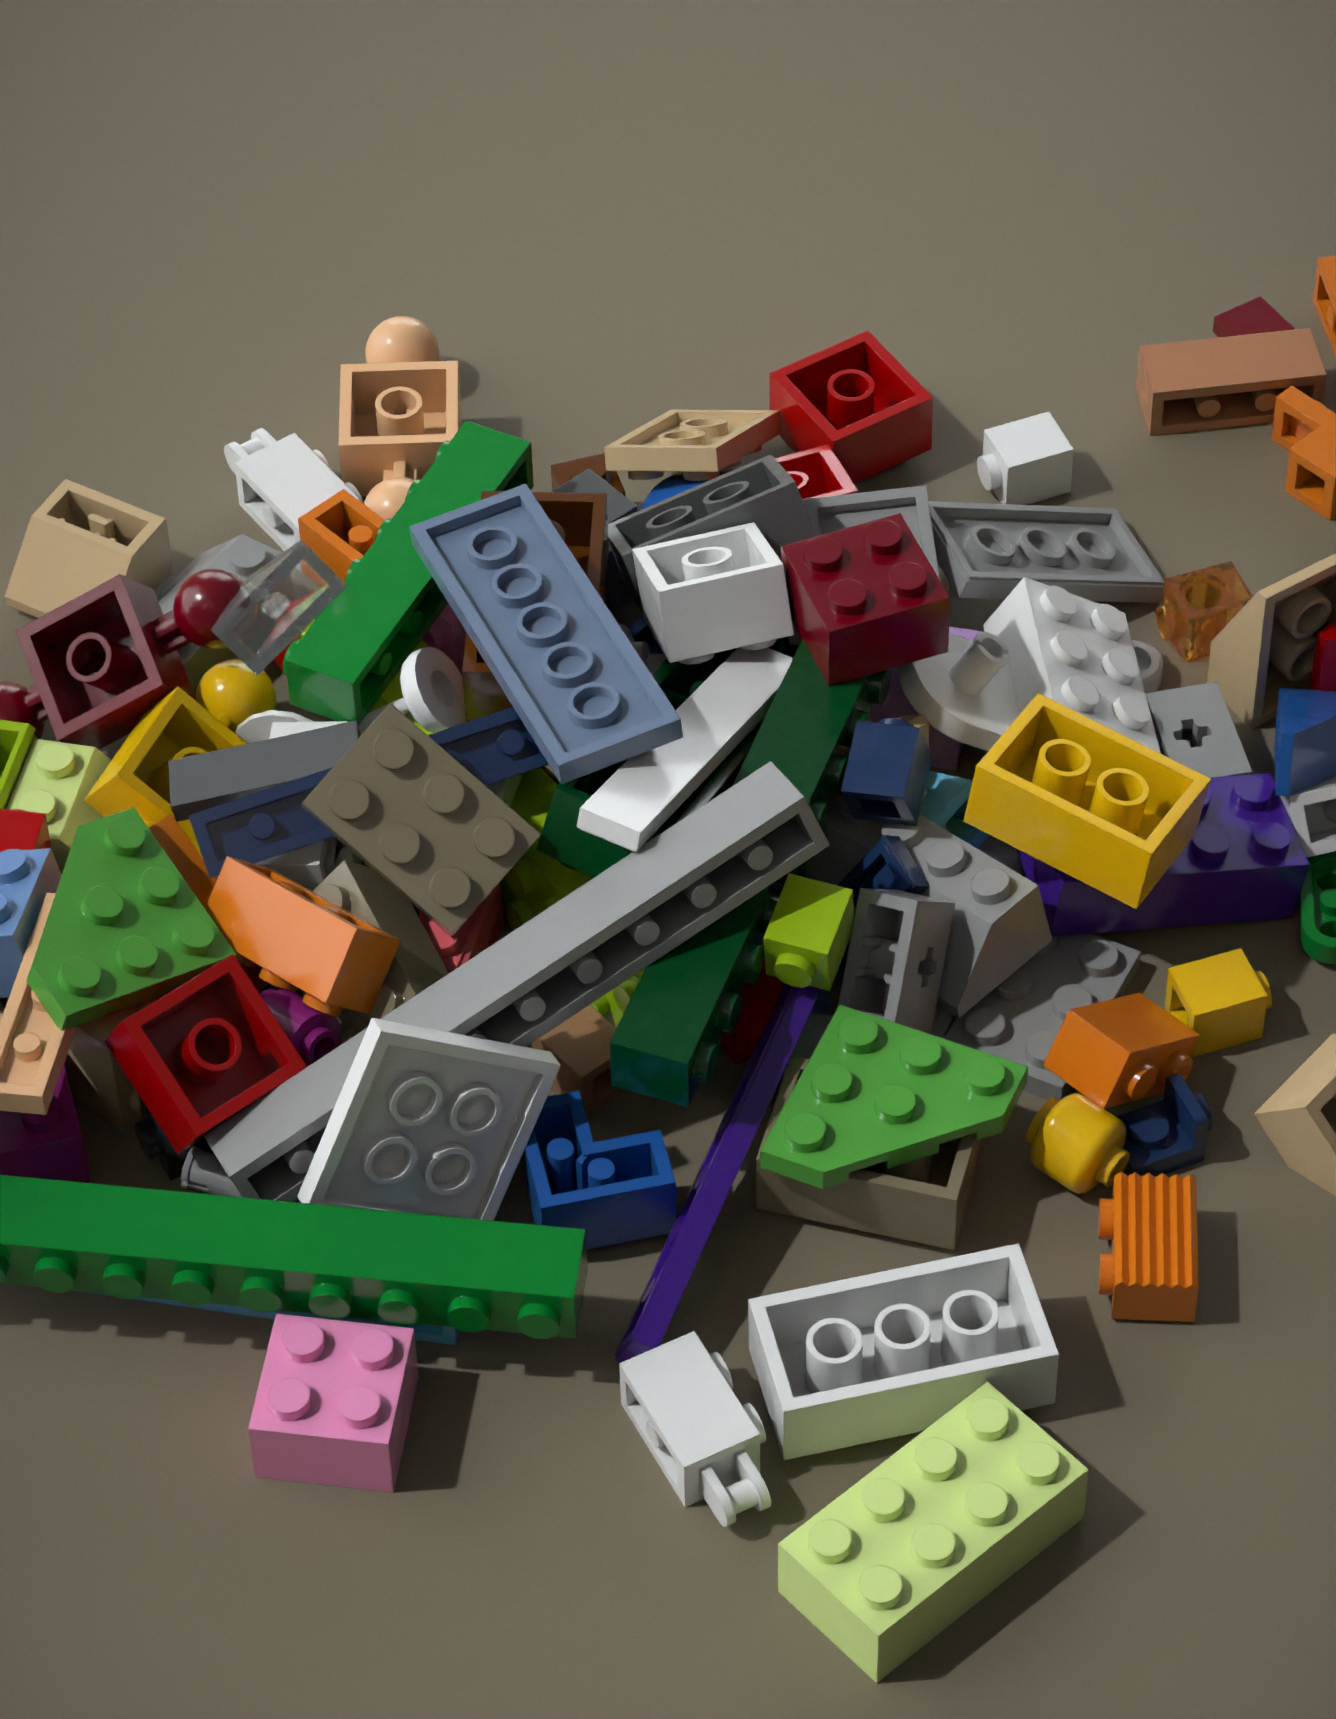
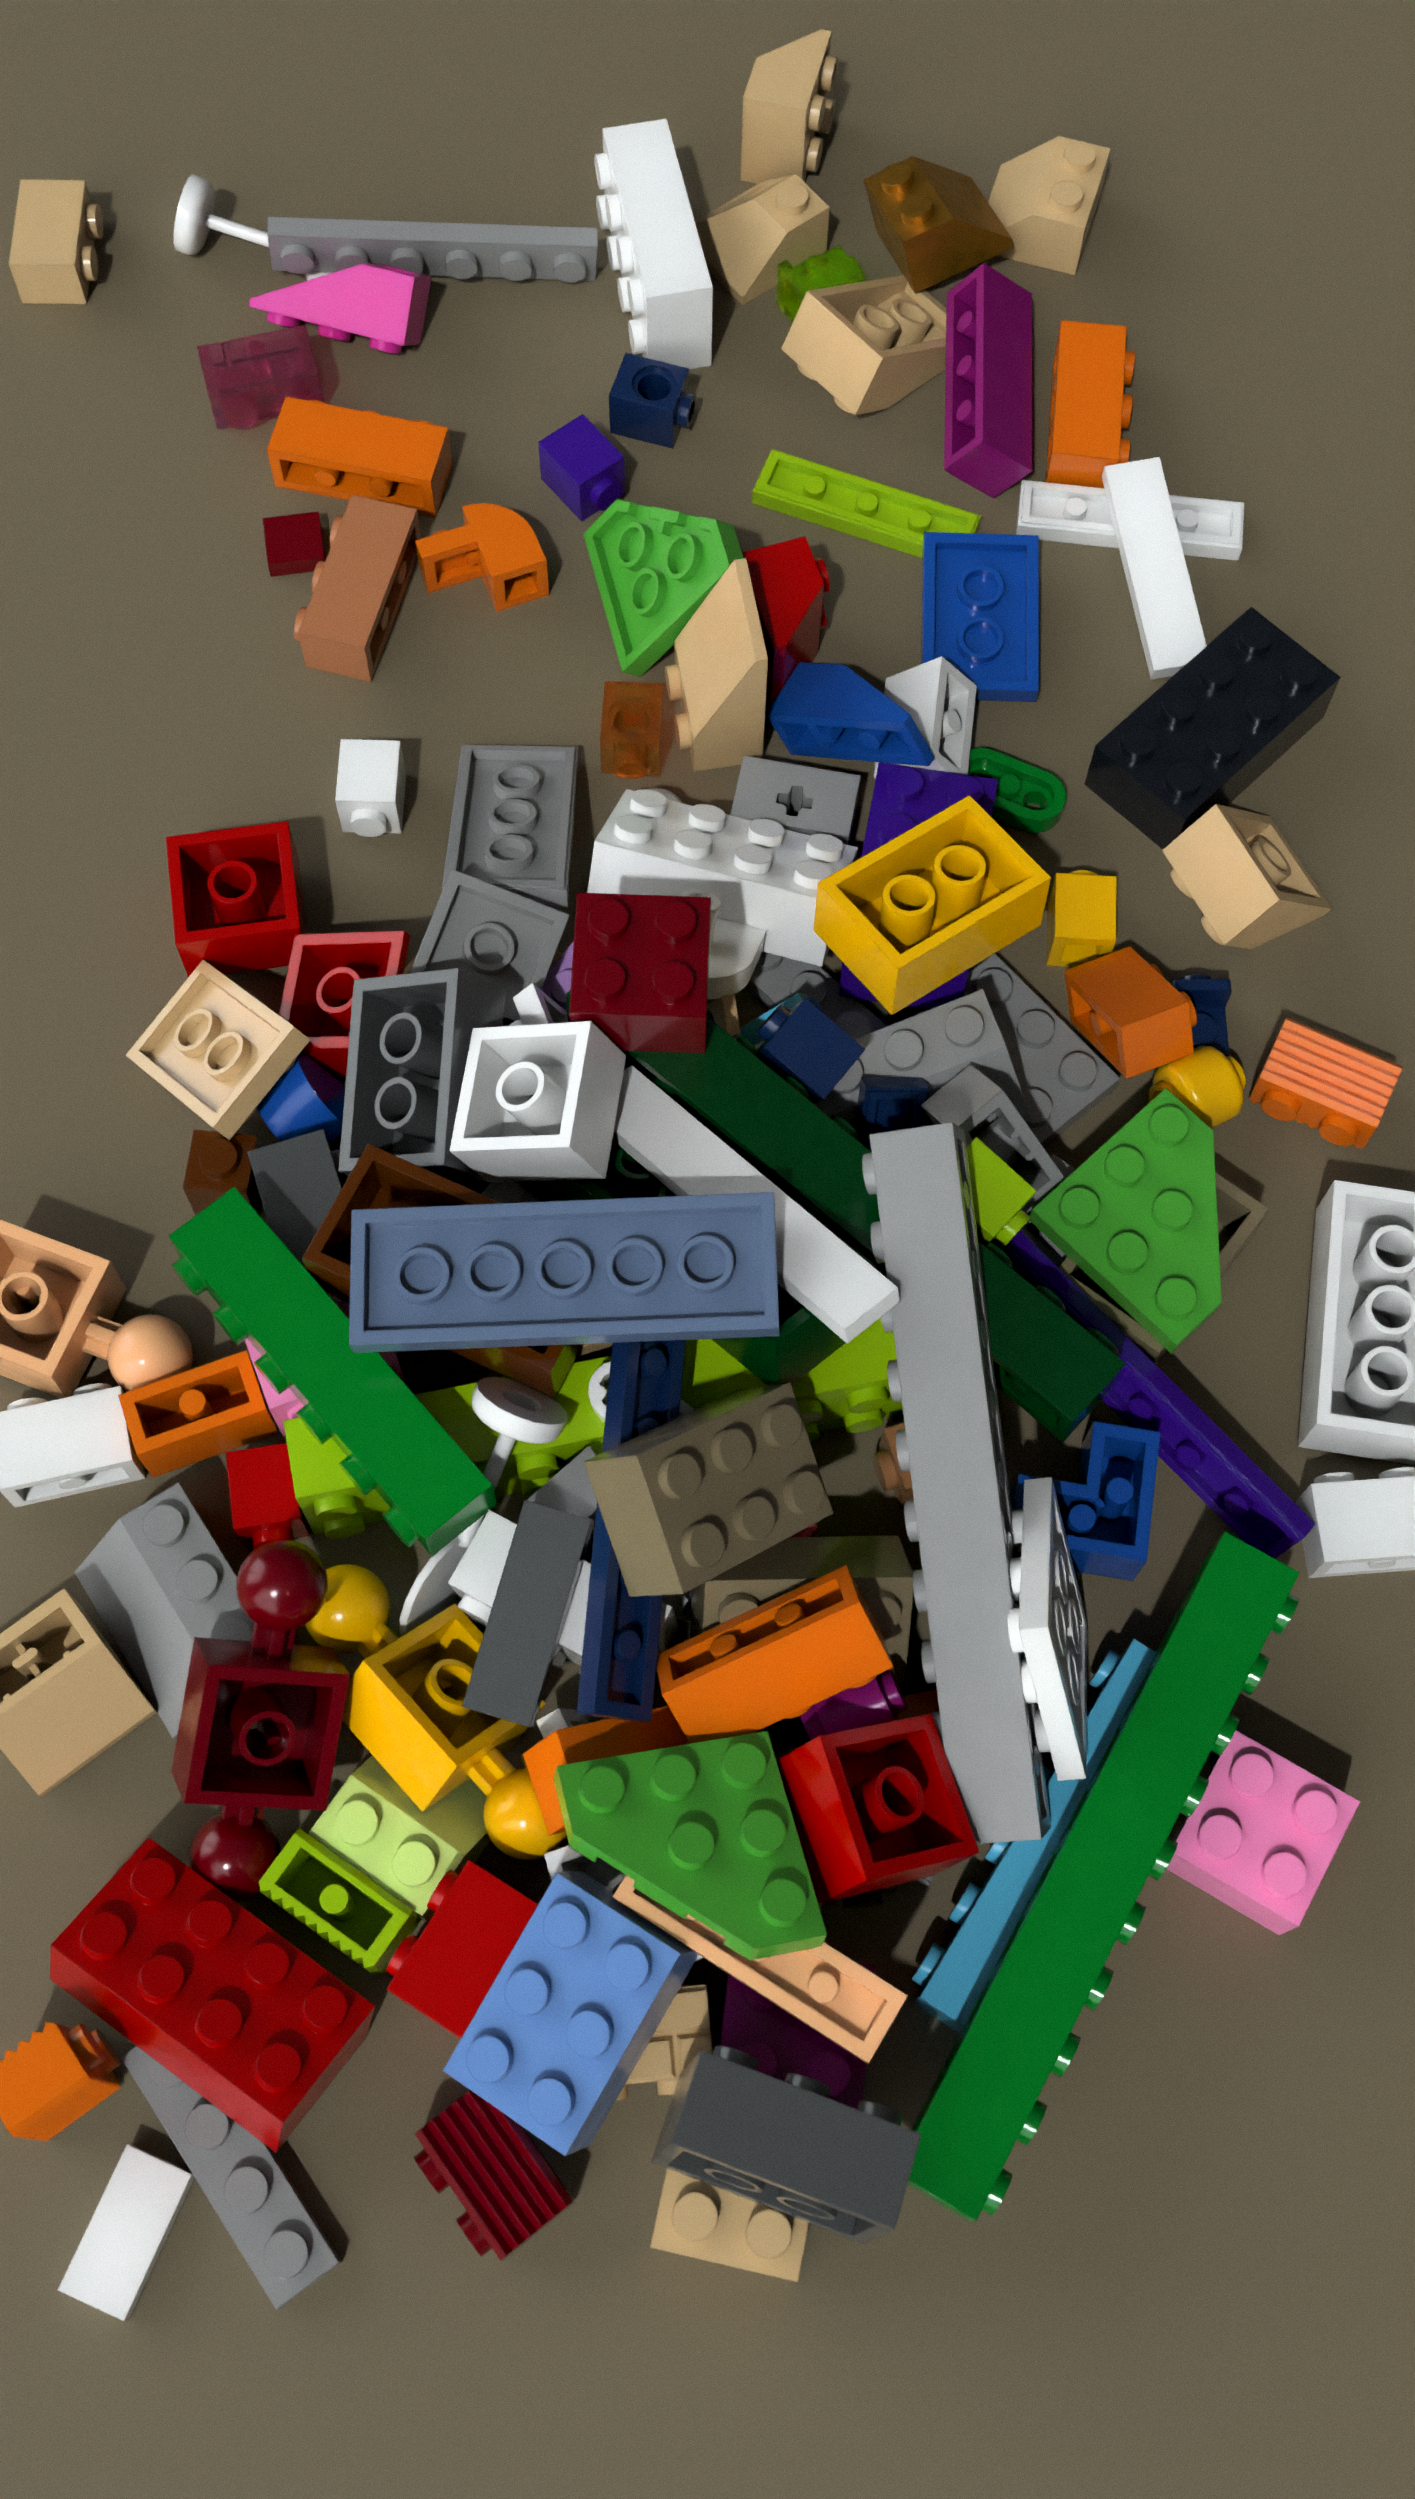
camera: 70 degrees left, 20 degrees up
(276, 605) = (341, 1521): clear slope -> none

